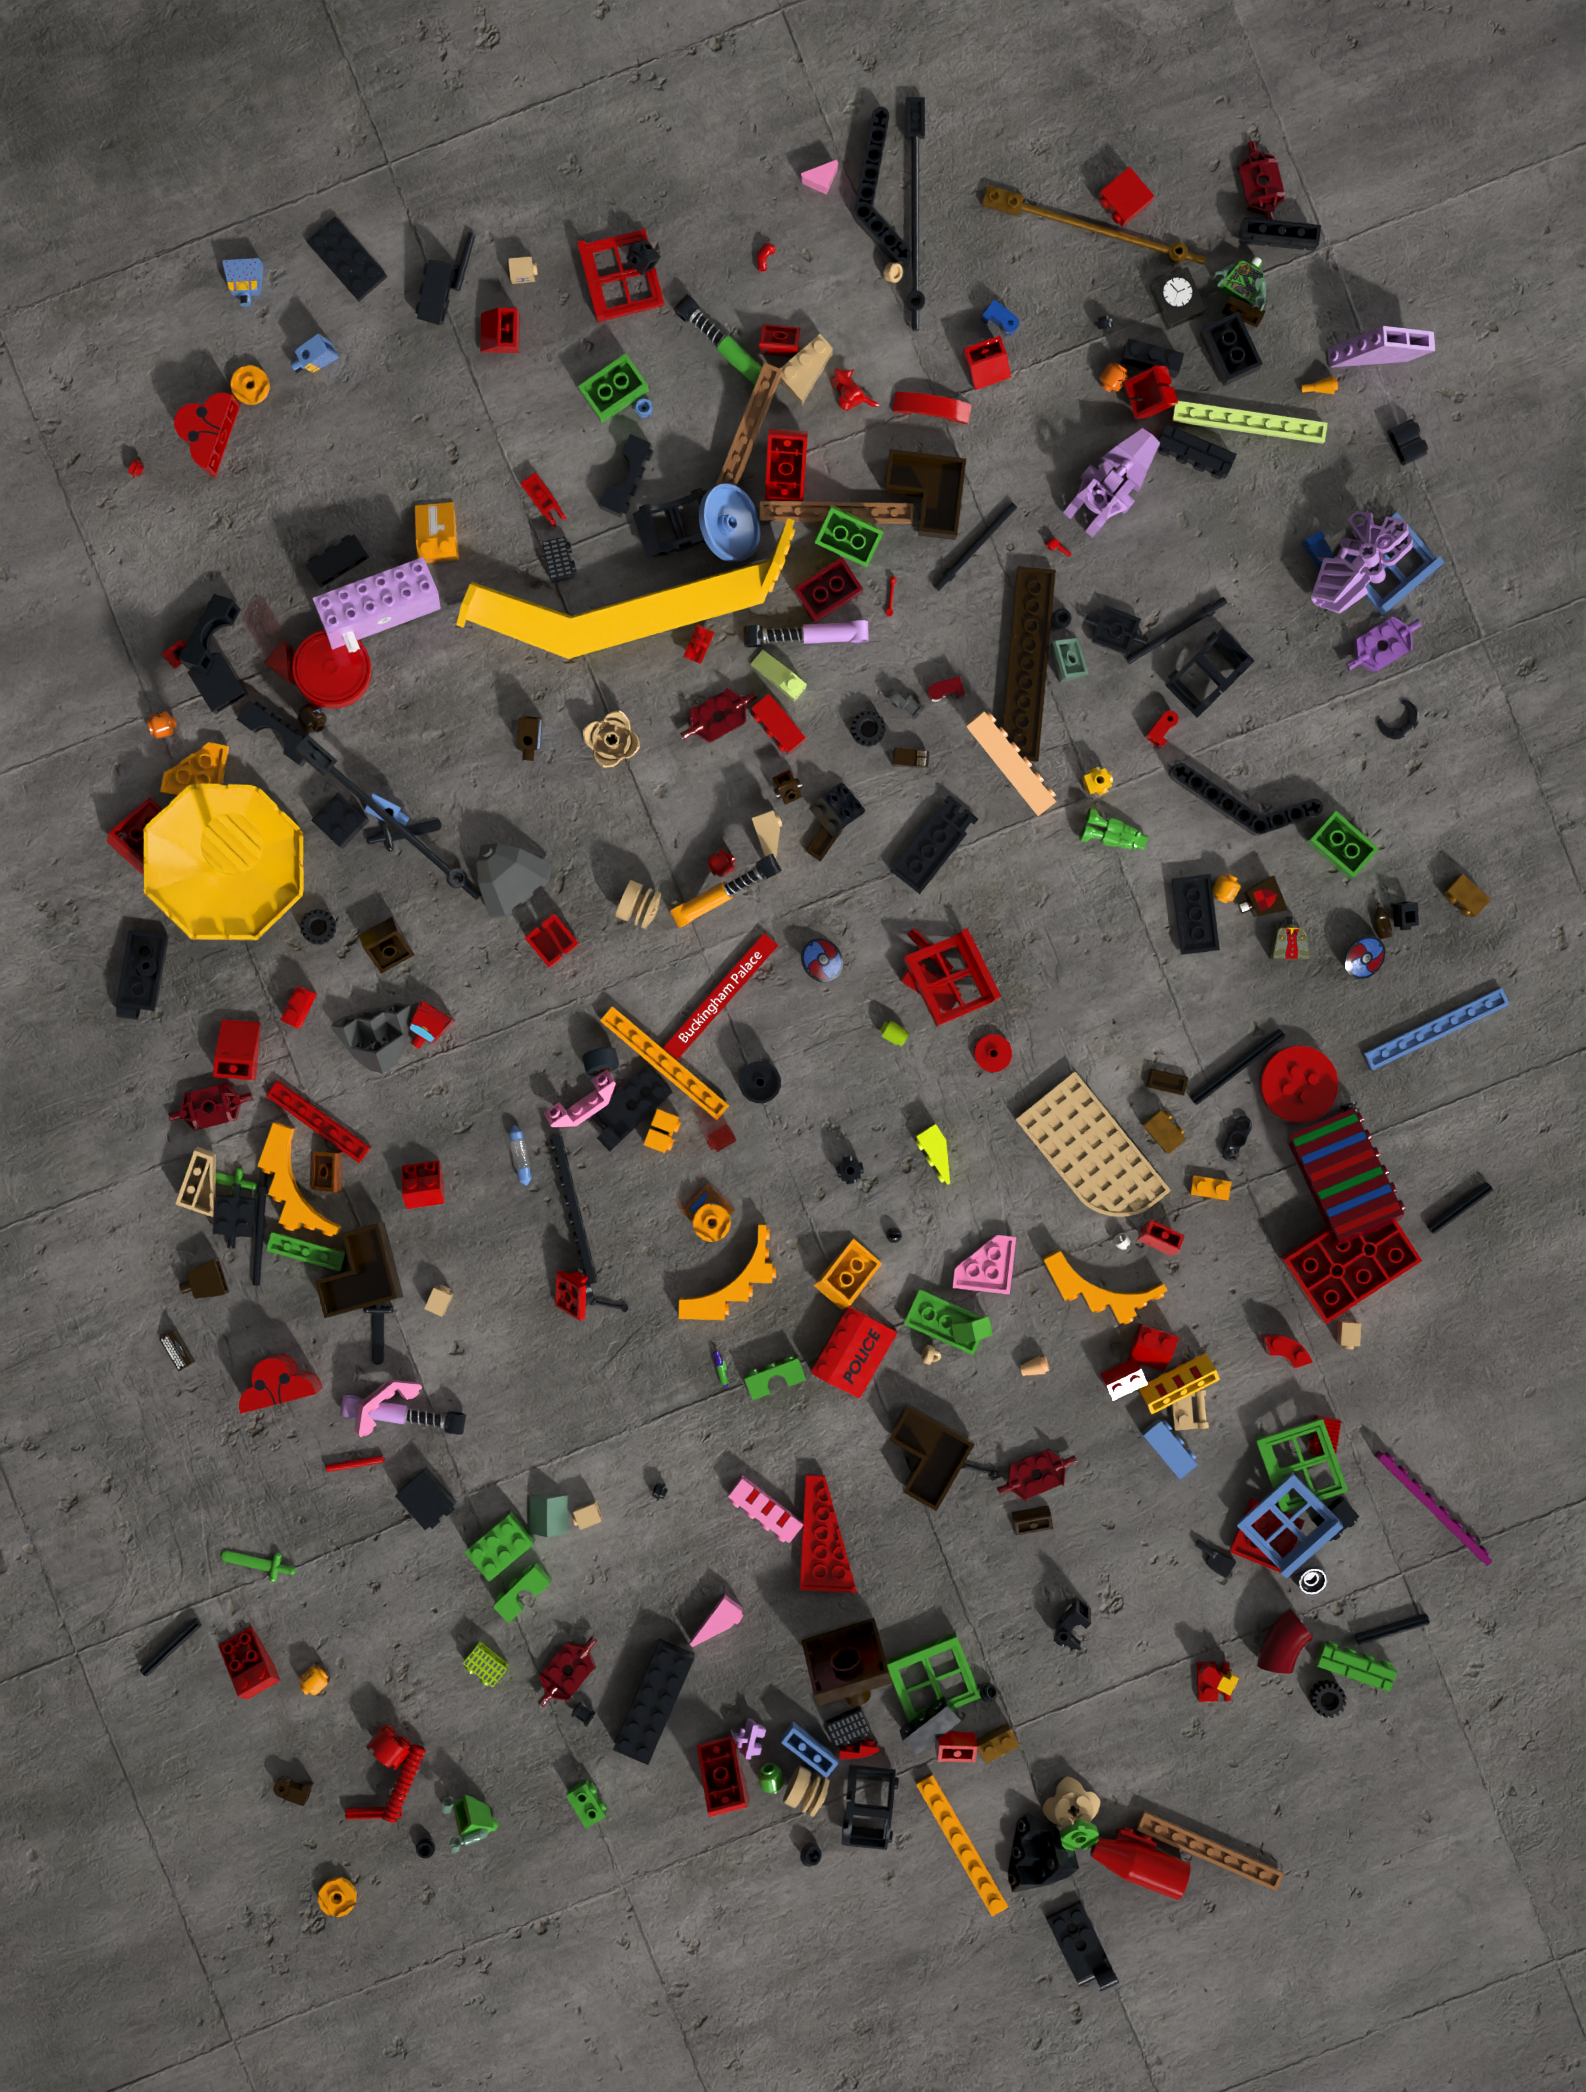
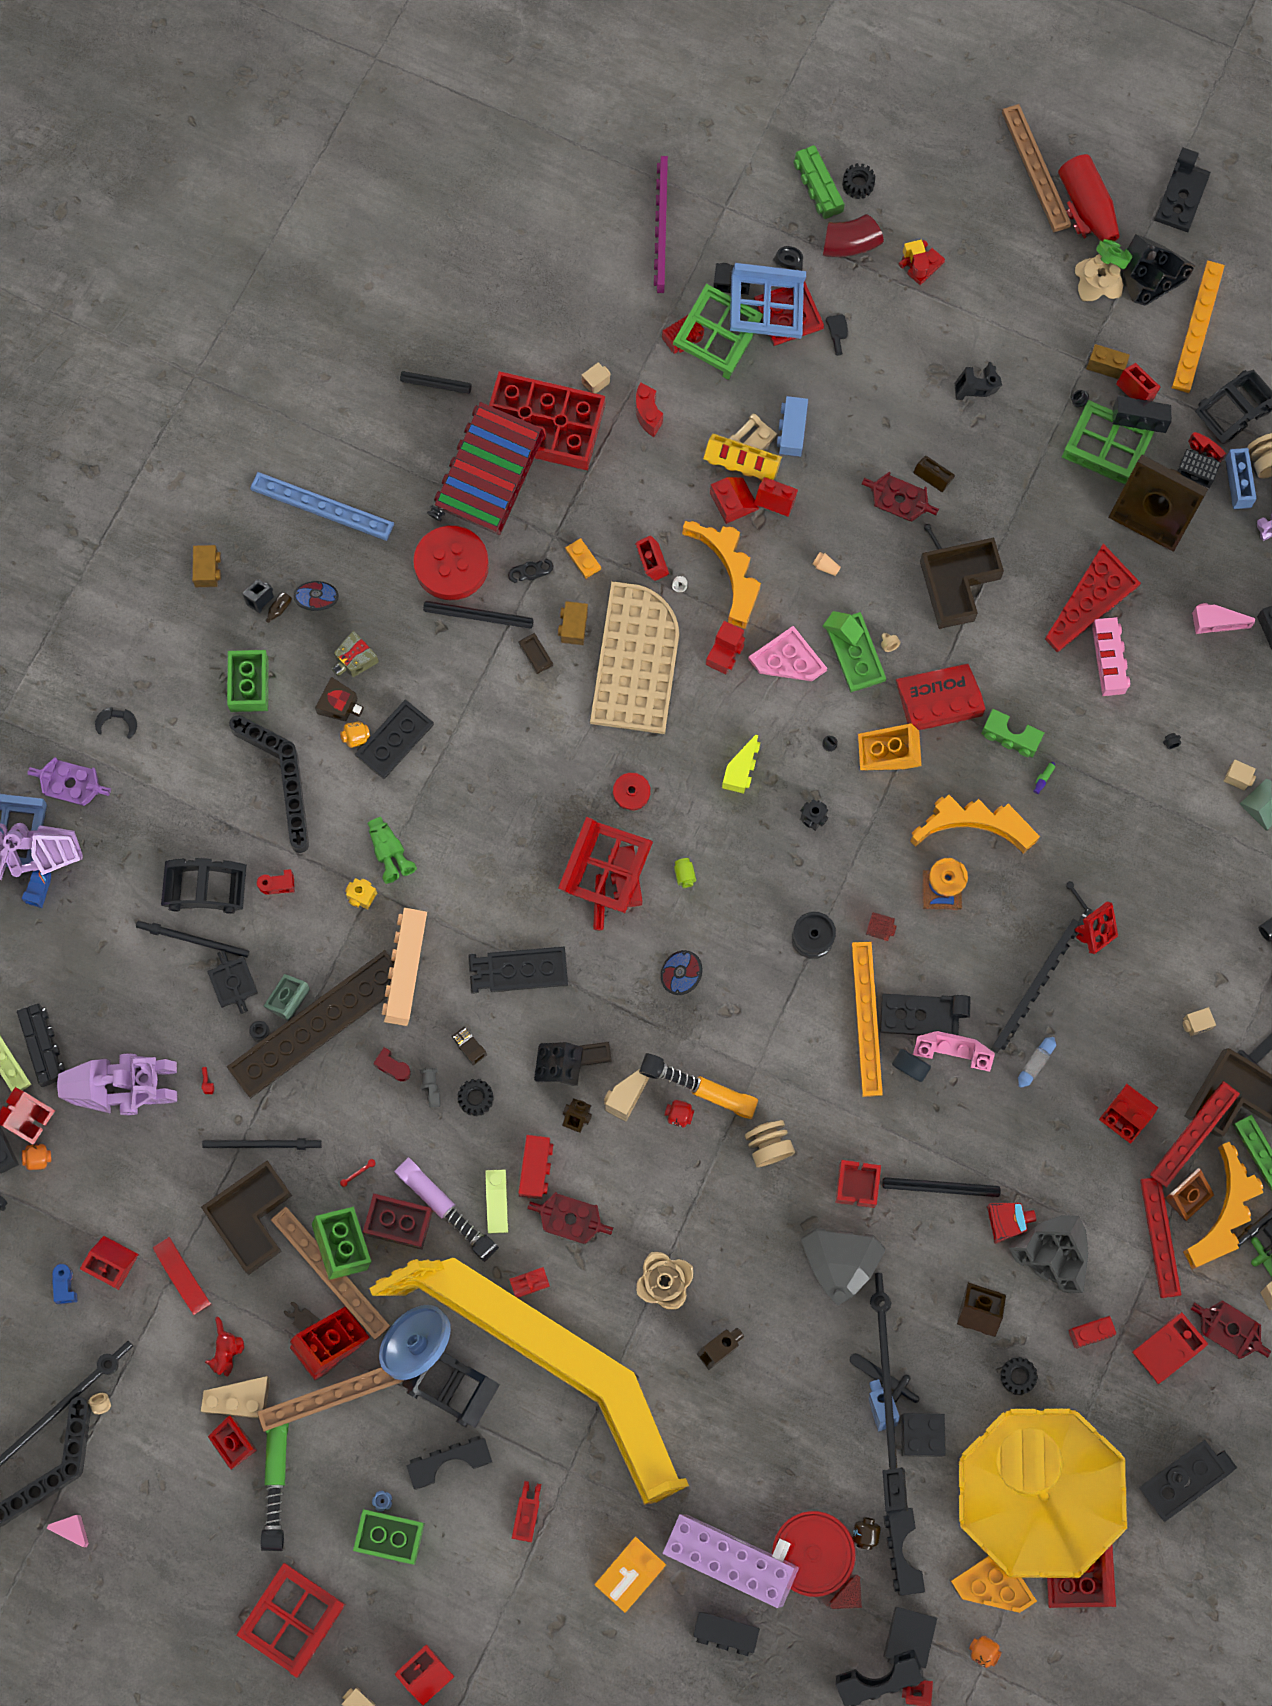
camera: 135 degrees left, 15 degrees down
(362, 1213) = (1194, 1134): none -> red tile
(496, 1000) = (941, 1187): none -> black axle
(558, 559) = (563, 1455): black brick -> none
(642, 257) = (262, 1611): black brick -> none
(657, 1139) = (916, 974): light orange piece -> none
(720, 996) = (778, 1023): red tile -> none
(766, 250) = (174, 1520): red arm -> none
(819, 465) = (302, 1319): none -> dark brown plate
(1039, 1228) = (727, 645): none -> red brick
(1392, 1629) = (770, 181): black axle -> none

